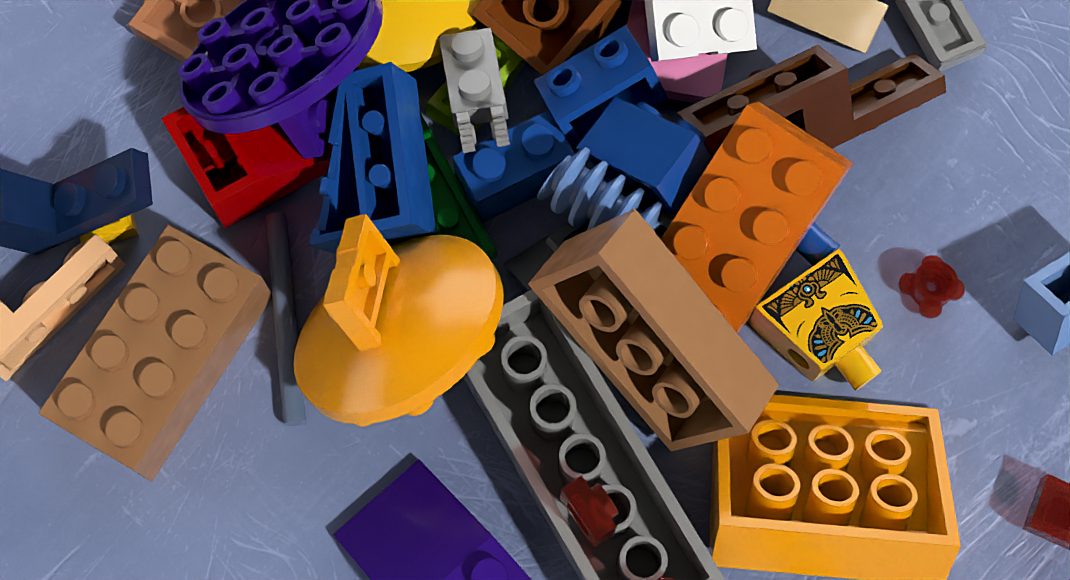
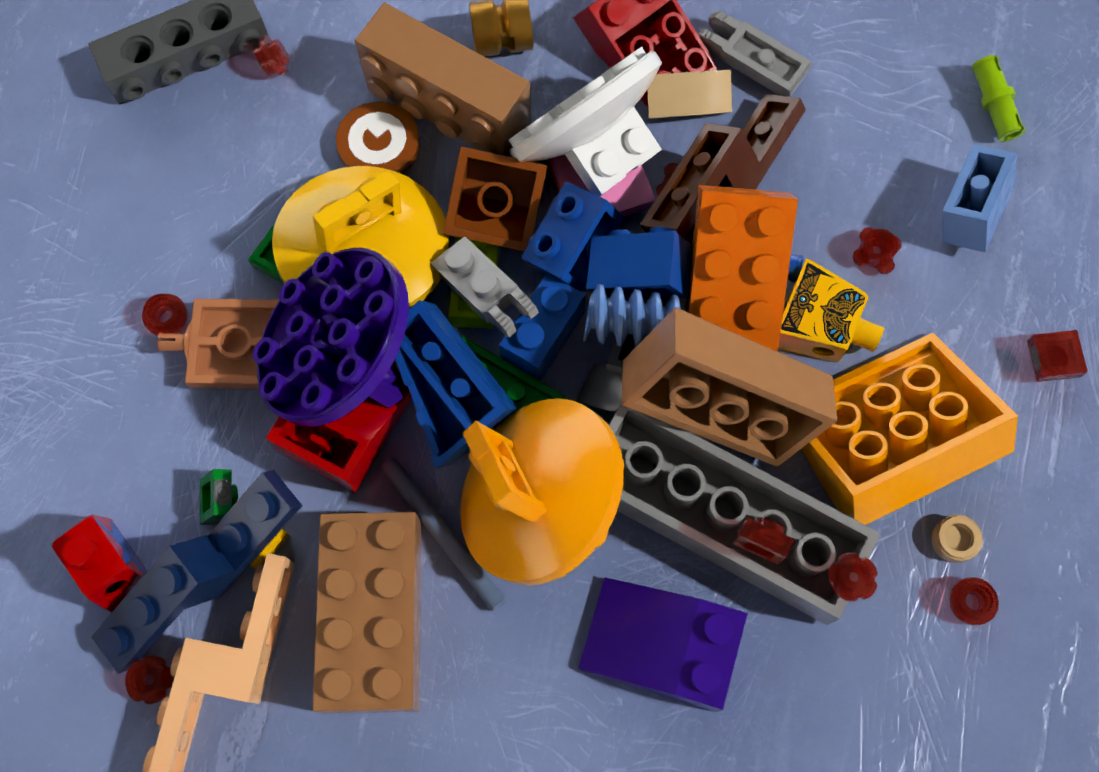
camera: 30 degrees left, 0 degrees up
(89, 149) = (216, 496): none -> green plate

